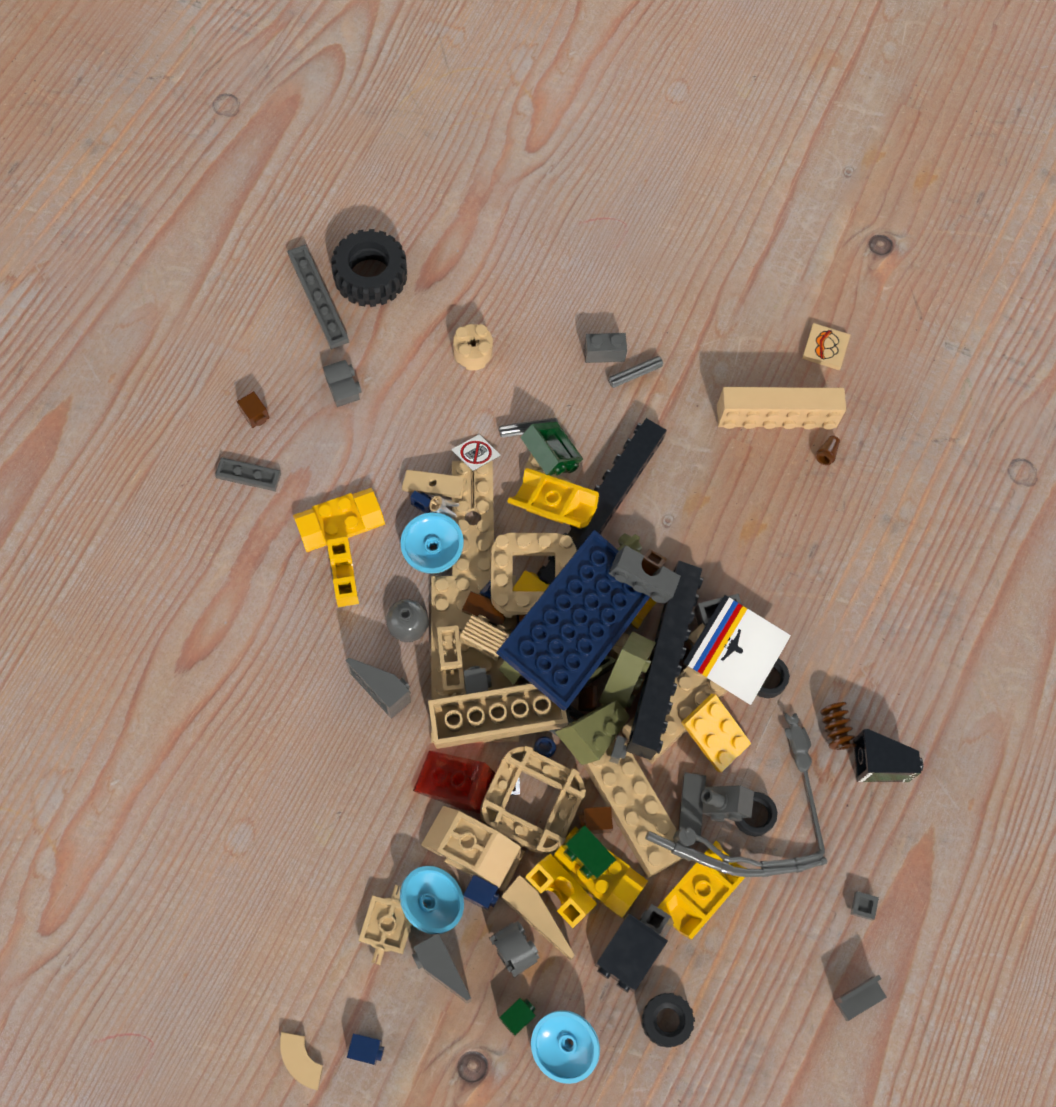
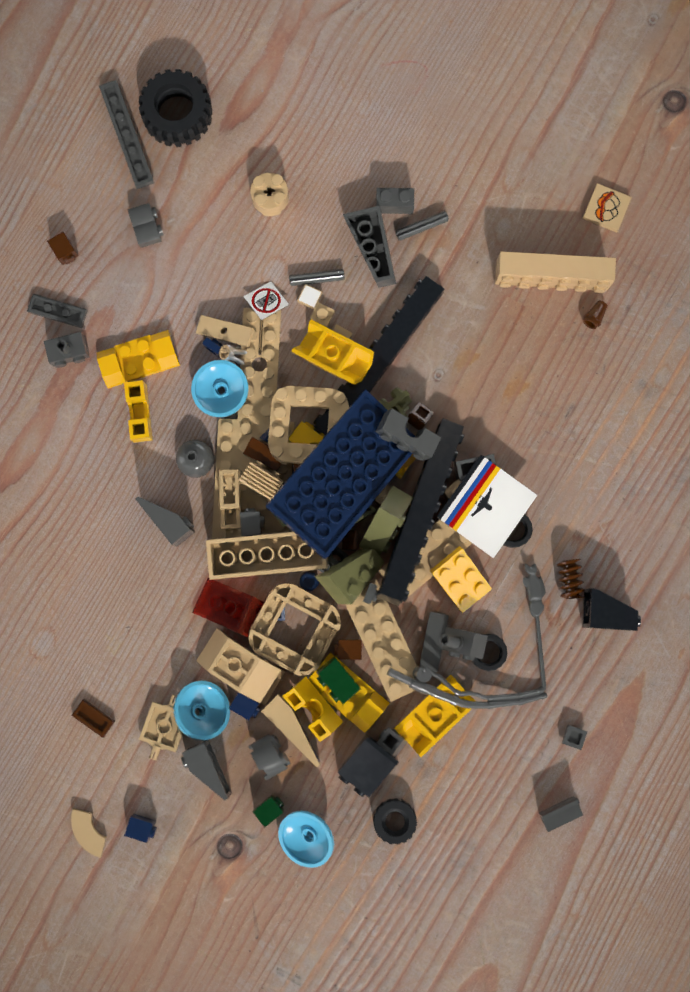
camera: 10 degrees right, 15 degrees up
(260, 512) = (66, 349): none -> dark grey brick
(302, 921) = (93, 718): none -> reddish brown tile
(519, 449) = (309, 296): none -> white tile
(535, 440) = (345, 297): dark green window -> none
(583, 384) = (371, 238): none -> dark grey wedge

